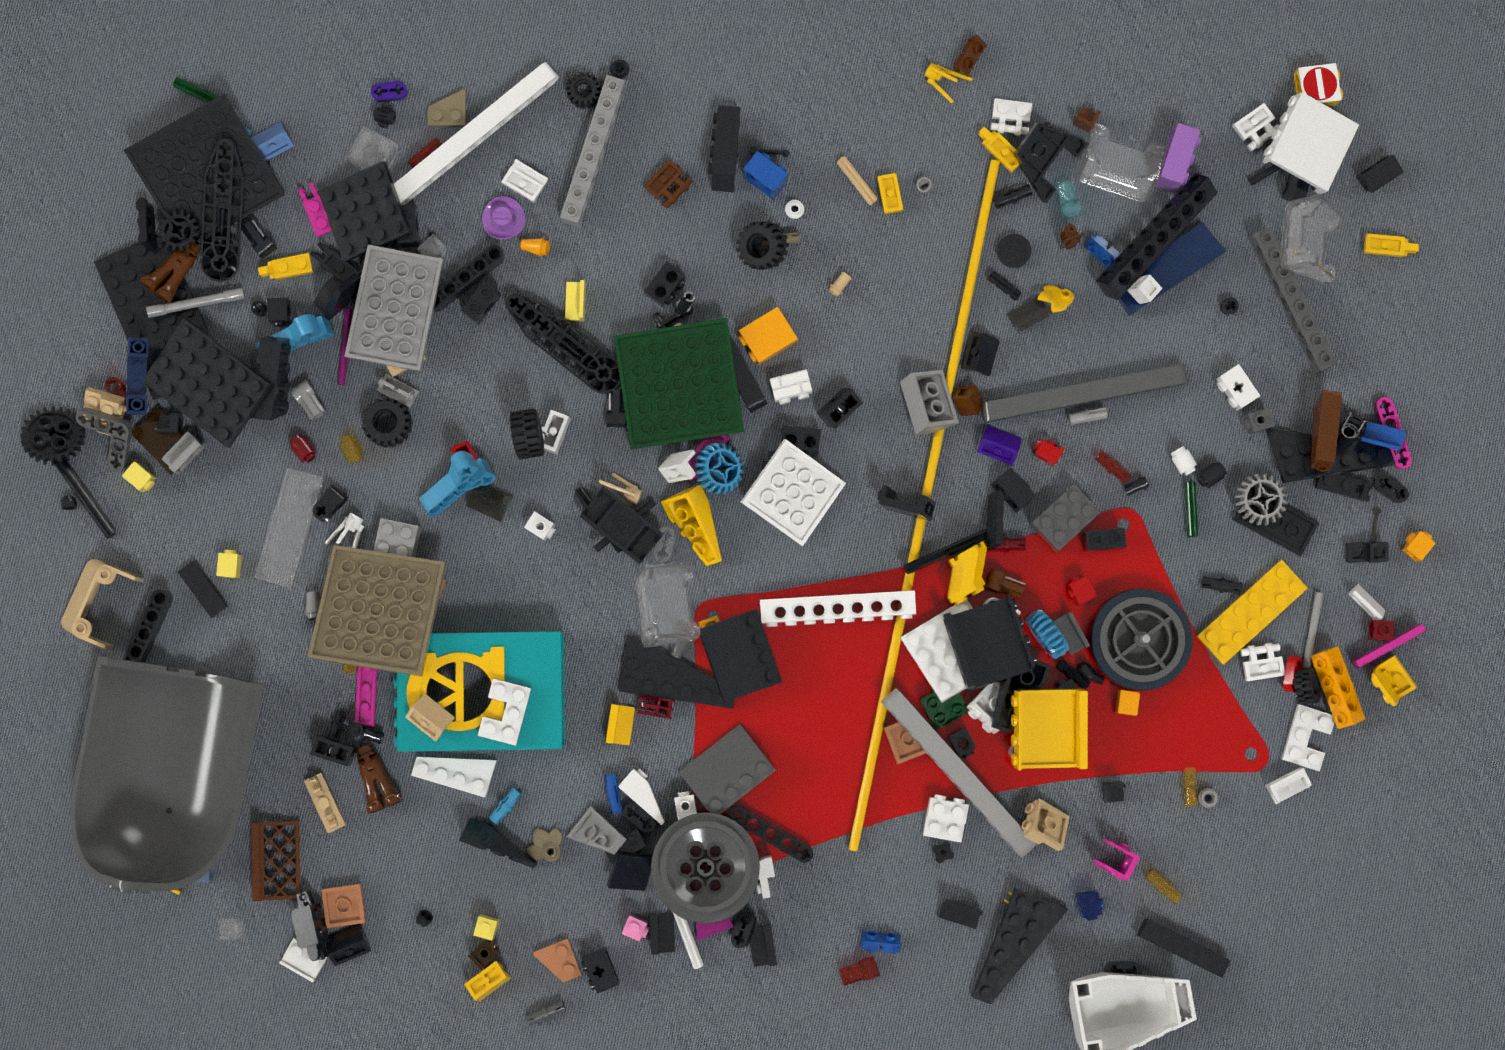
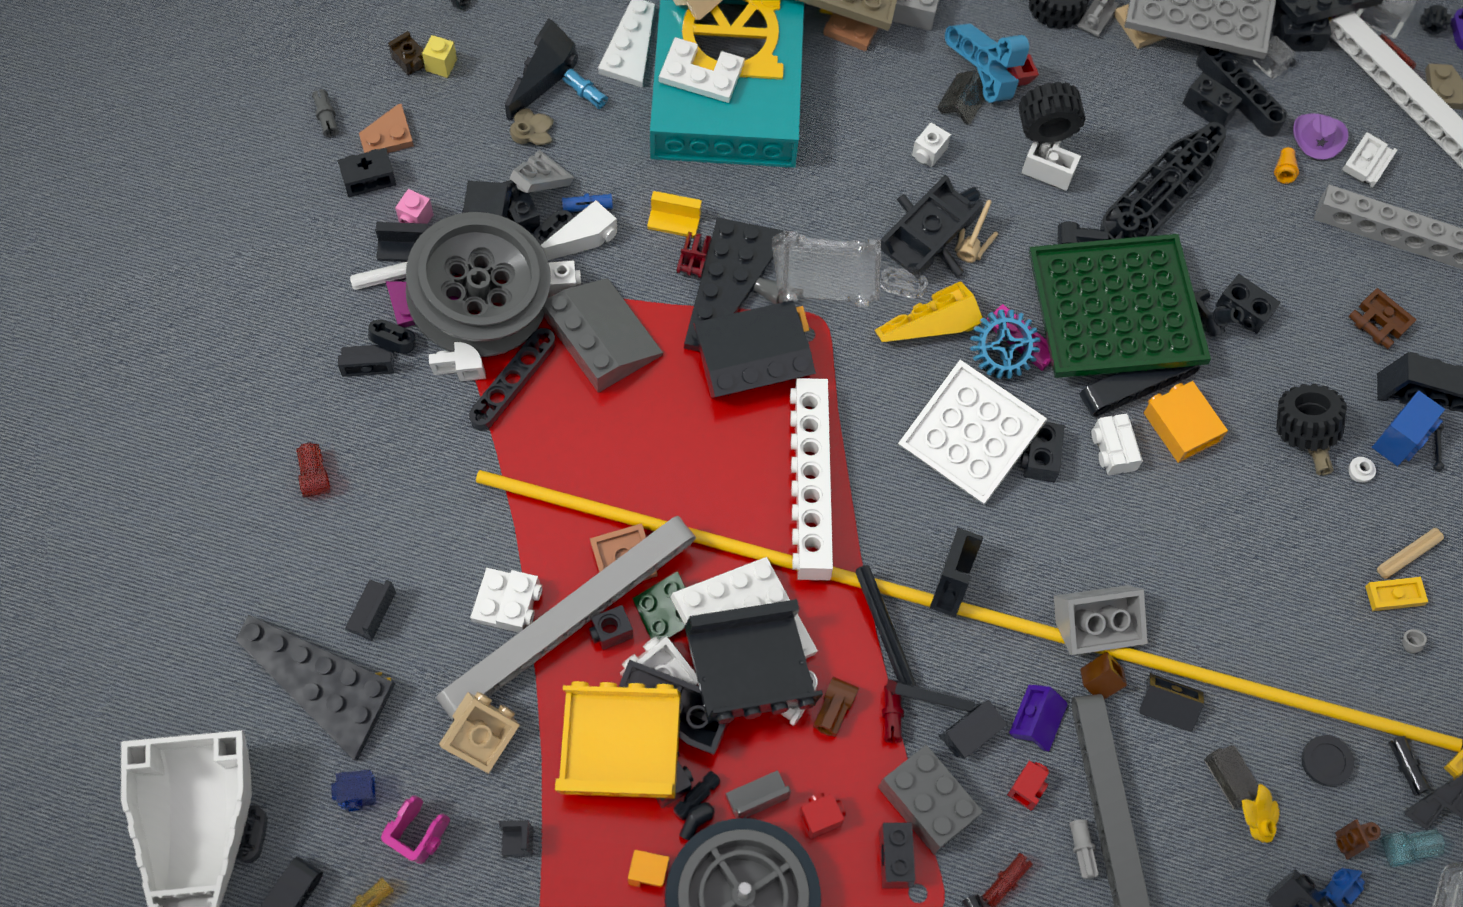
camera: 90 degrees right, 20 degrees down
(487, 981) = (373, 53): yellow hinge -> none
(575, 301) = (1219, 206): light yellow panel -> none
(677, 468) = (1004, 293): white panel -> none
(839, 407) = (1089, 499): black brick -> none
(840, 283) = (1261, 518): tan pin -> none
(872, 940) = (350, 492): blue hinge -> none
(939, 856) = (465, 598): black plate -> none
(967, 574) = (853, 648): yellow brick -> none
(1004, 285) = (1274, 743): black axle -> none
(1047, 634) = (759, 754): dark azure gear -> none

